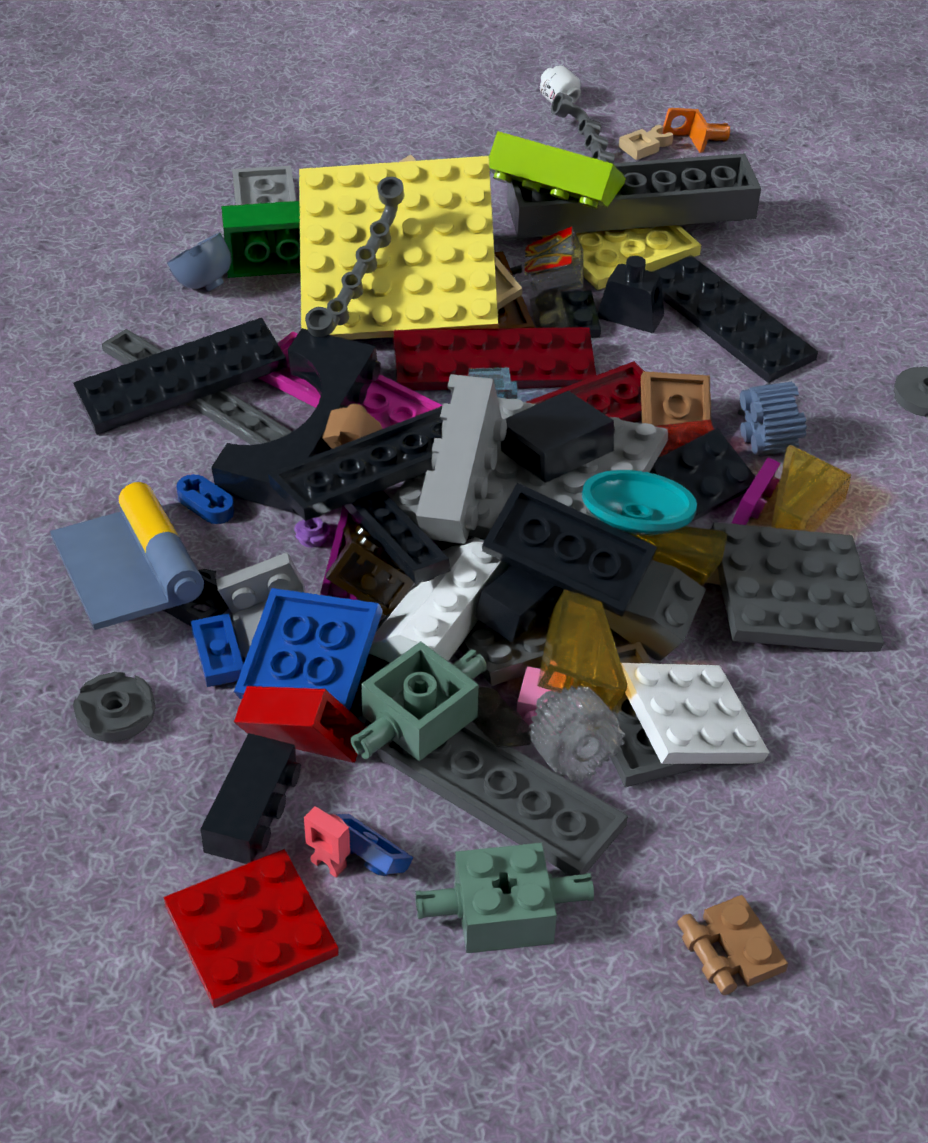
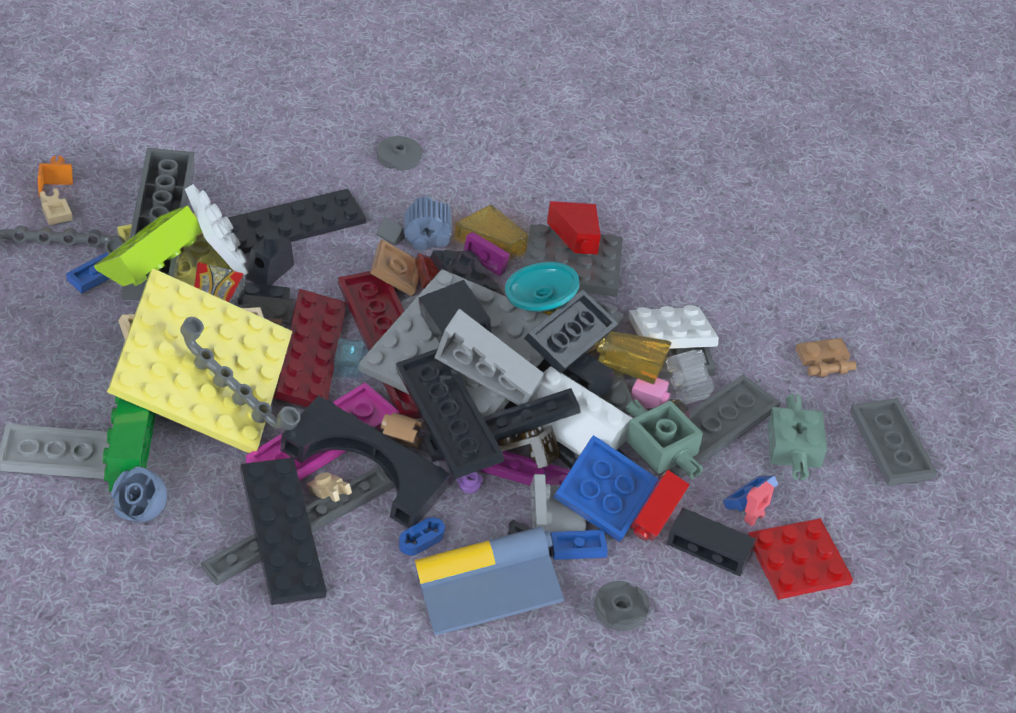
camera: 85 degrees left, 0 degrees up
(263, 402) = (328, 485): none -> tan plate
(551, 1056) = (893, 442): none -> dark grey plate
(631, 221) = (217, 229): none -> white plate
(850, 568) = (576, 225): none -> red slope

